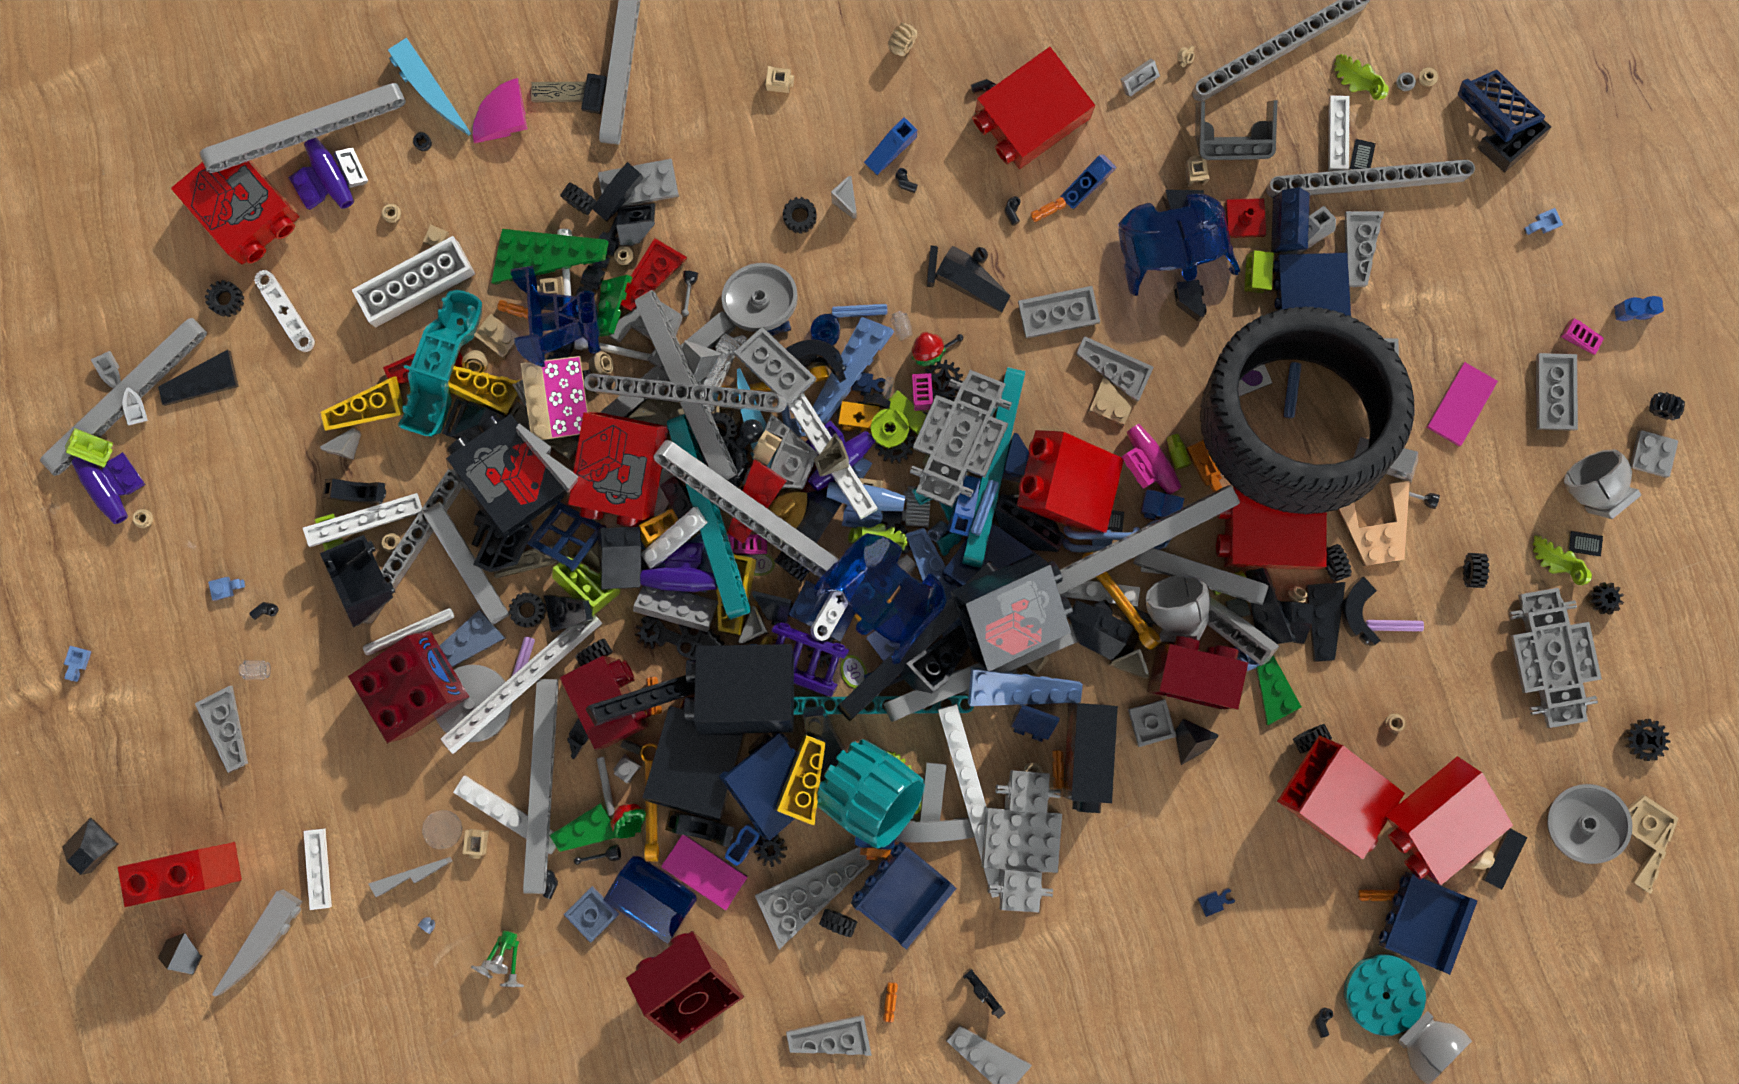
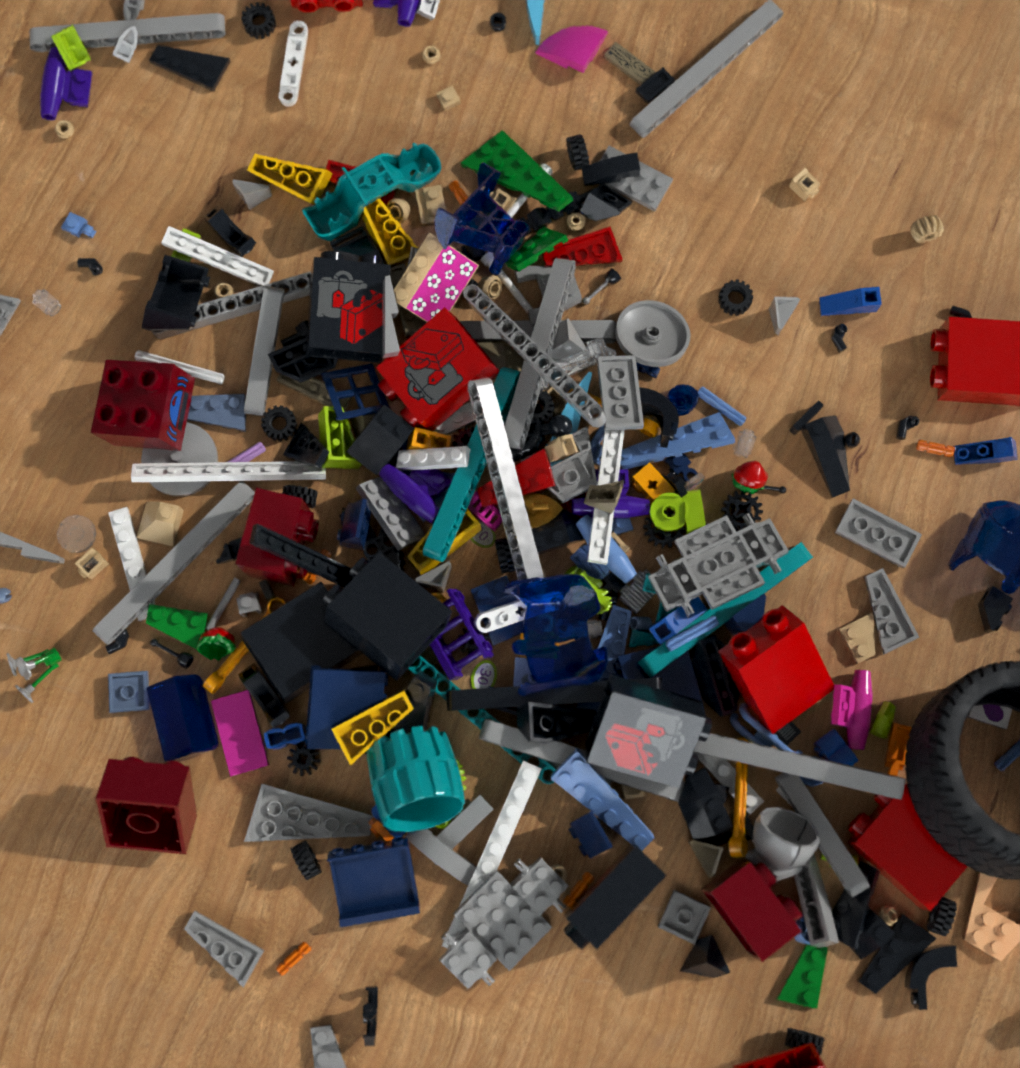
camera: 40 degrees right, 5 degrees down
(413, 282) = (404, 116): white brick -> none
(501, 766) = (160, 523): none -> tan slope
(658, 640) = (355, 525): none -> dark blue slope
(677, 496) = (462, 429): black plate -> none
(774, 607) = (464, 574): black slope -> none
(922, 404) = (709, 515): dark pink slope -> none
(1239, 607) = (832, 884): pearl dark grey tile -> none
(1395, 625) = (949, 1009): lavender axle -> none

